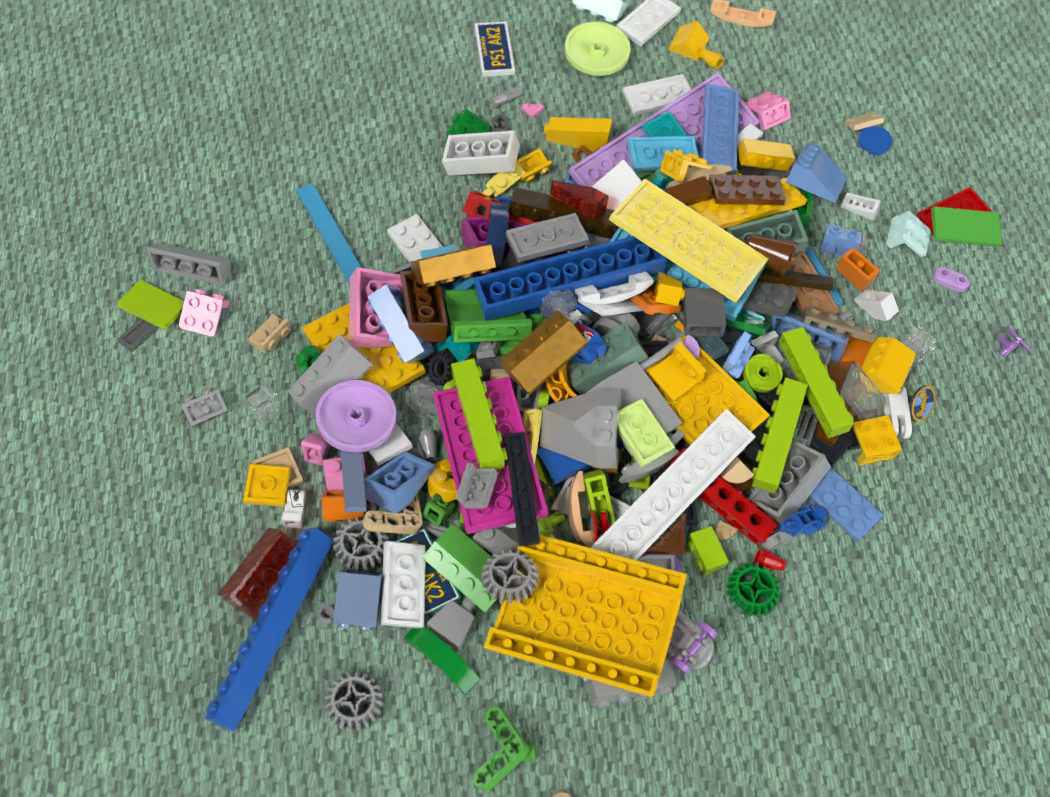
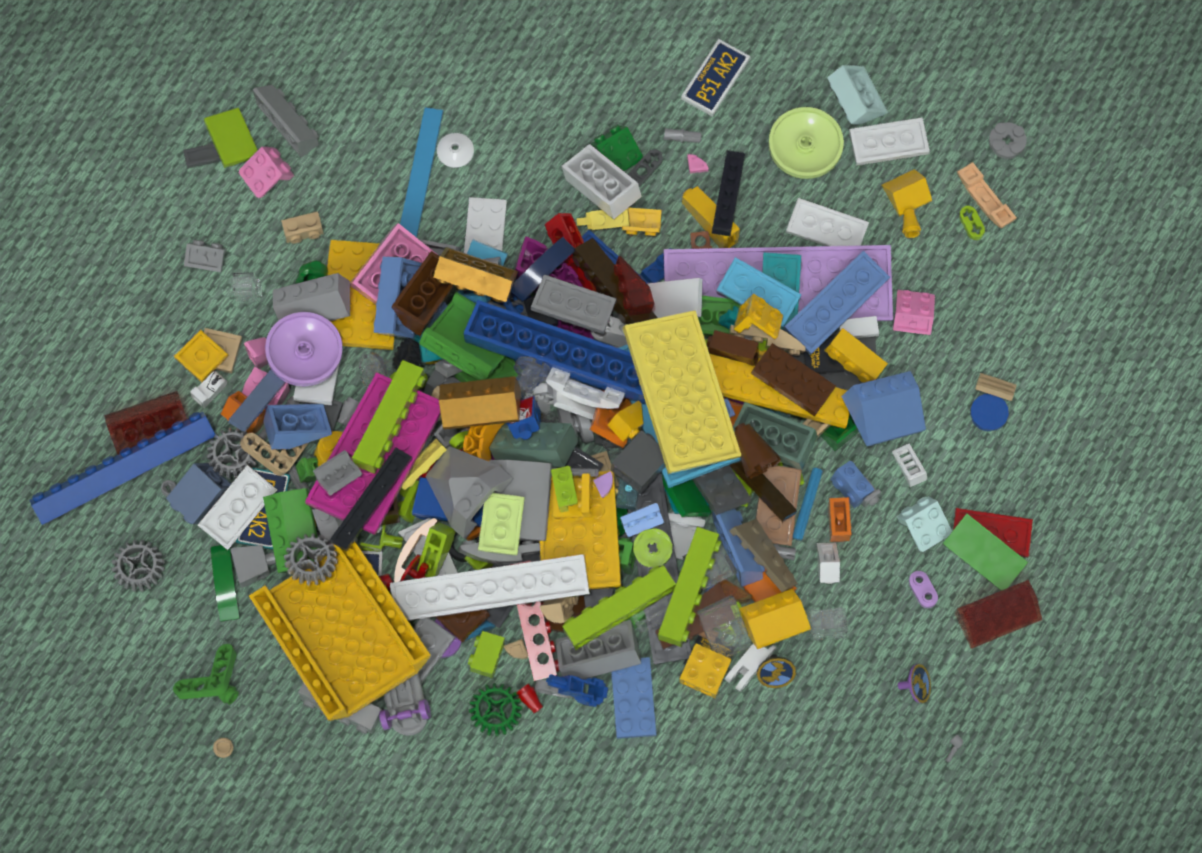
camera: 45 degrees right, 10 degrees up
(346, 211) = (458, 157): none -> white dish
(579, 106) = (728, 193): none -> black tile
(668, 368) = (564, 487): none -> lime bracket
(748, 35) = (975, 220): none -> lime beam
(1014, 259) = (999, 614): none -> clear red slope

